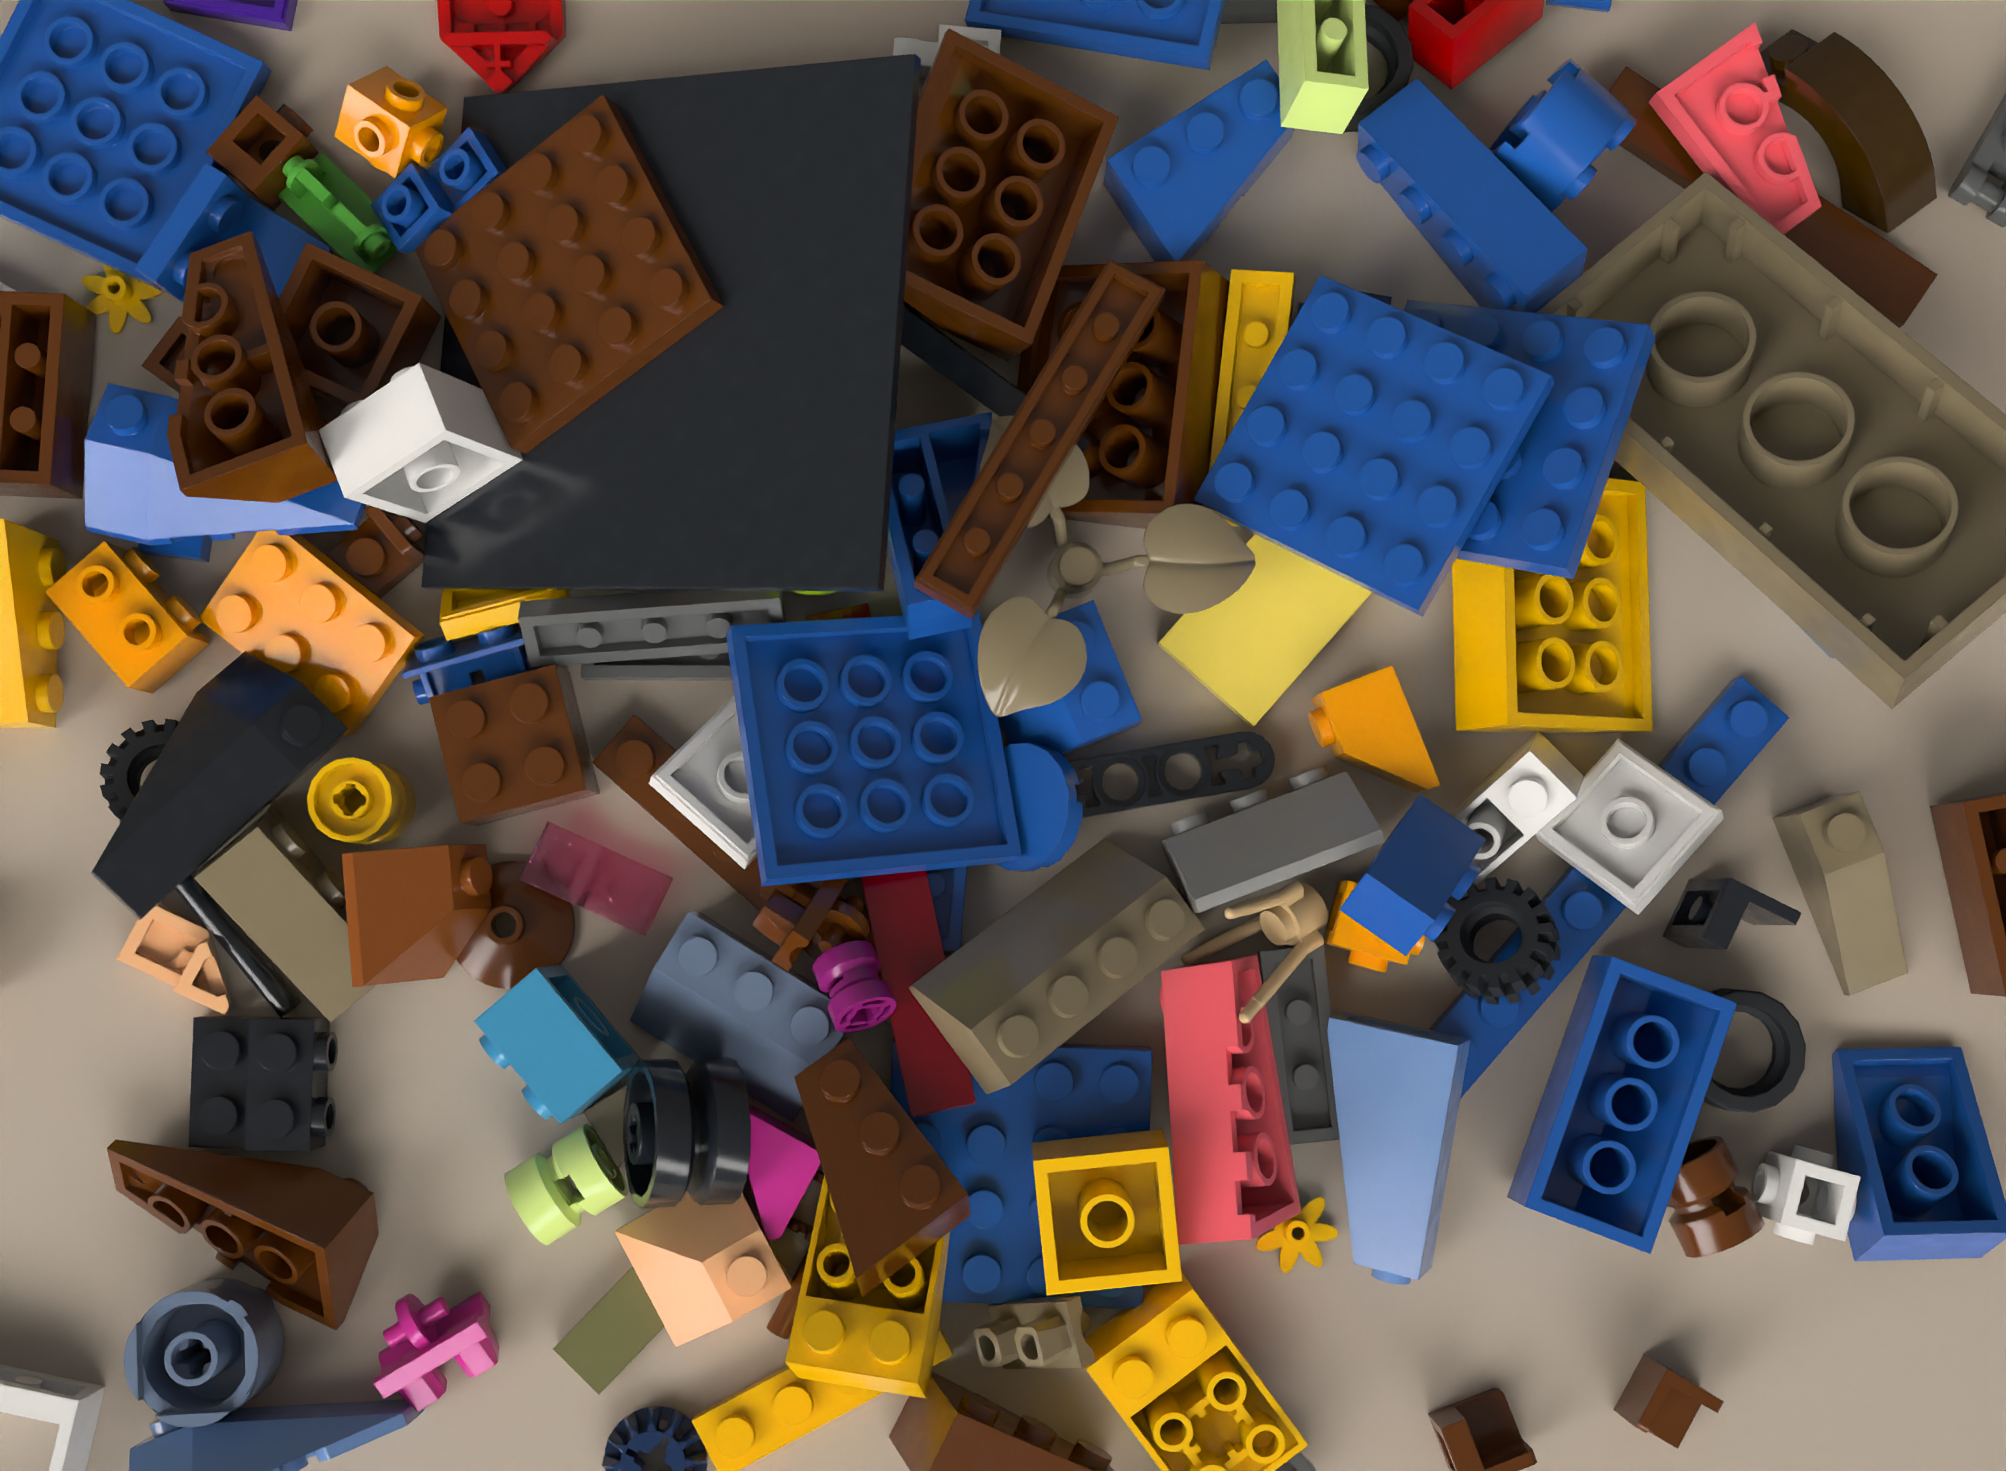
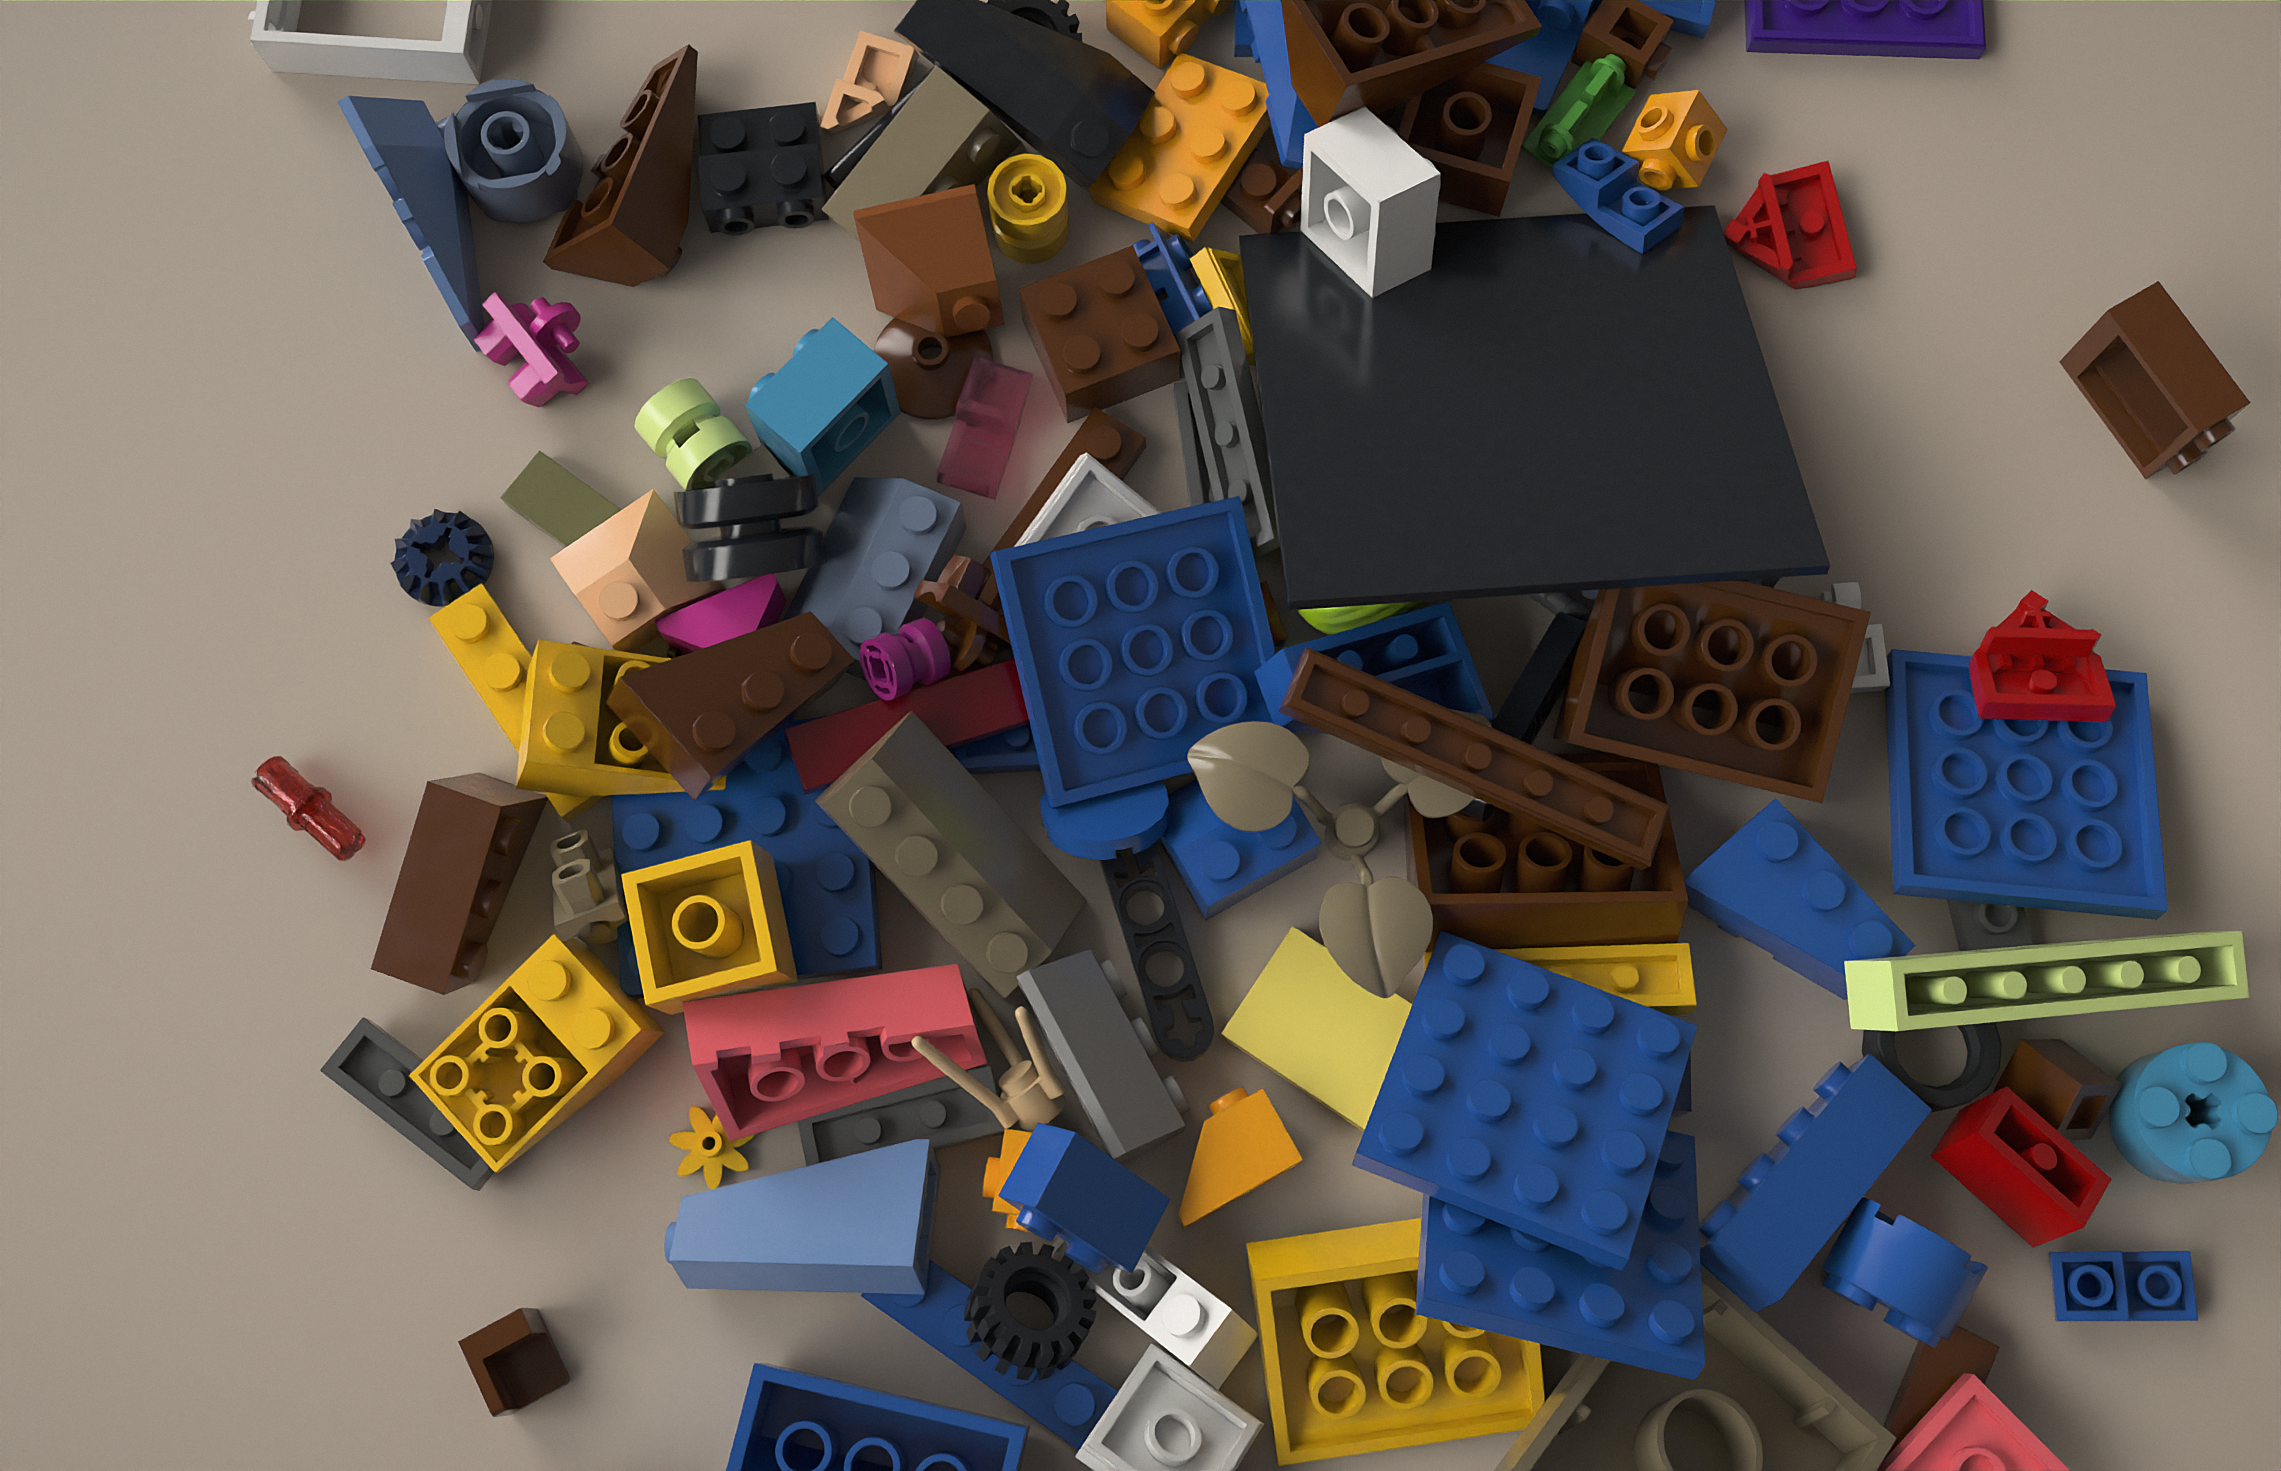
camera: 85 degrees right, 10 degrees down
(566, 275) = (1555, 306): reddish brown plate -> none

